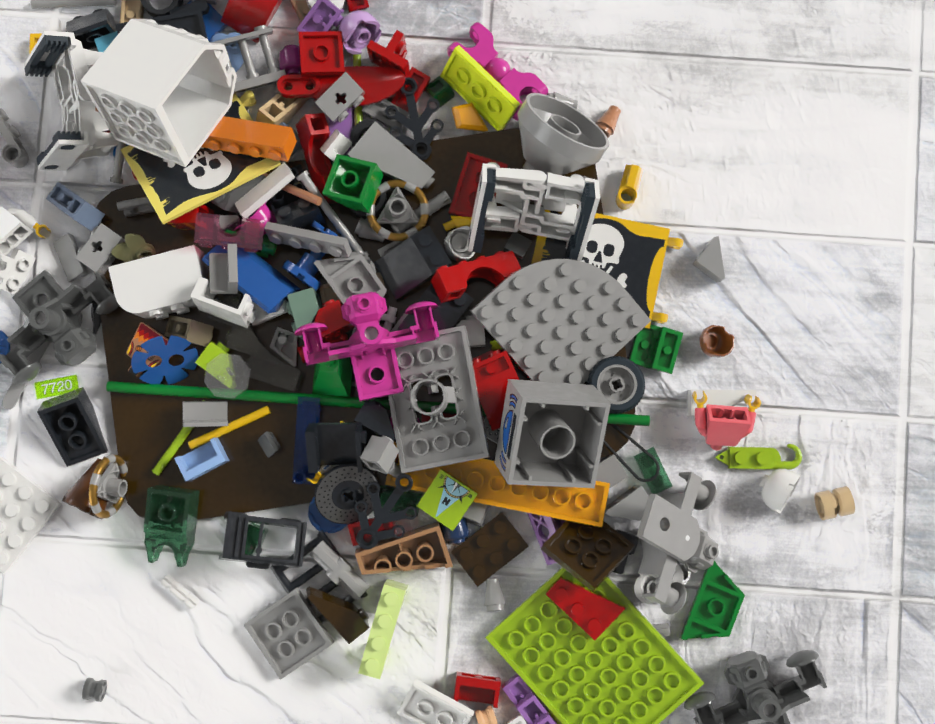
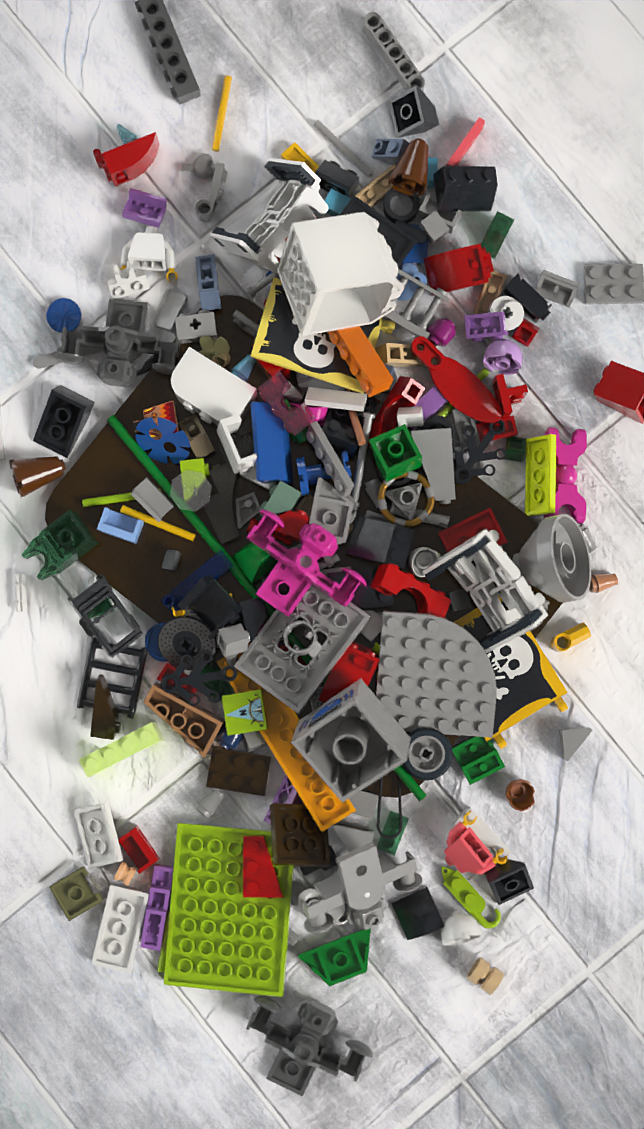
camera: 45 degrees right, 0 degrees up
(56, 386) = (78, 383): clear neon green sticker -> none
(108, 485) = (46, 481): light grey piece -> none
(170, 239) = (244, 367): none -> medium azure cone
(224, 271) = (257, 425): light grey panel -> none
(289, 633) = (60, 690): light grey plate -> none
(321, 53) = (463, 348): red plate -> none
(339, 570) = (132, 685): light grey piece -> none
(343, 86) = (435, 384): light grey brick -> none
(457, 222) = (436, 545): yellow bar -> none
(468, 118) = (514, 485): light orange piece -> none
(736, 511) = (418, 914): none -> black slope
(776, 414) = (508, 880): none -> black slope

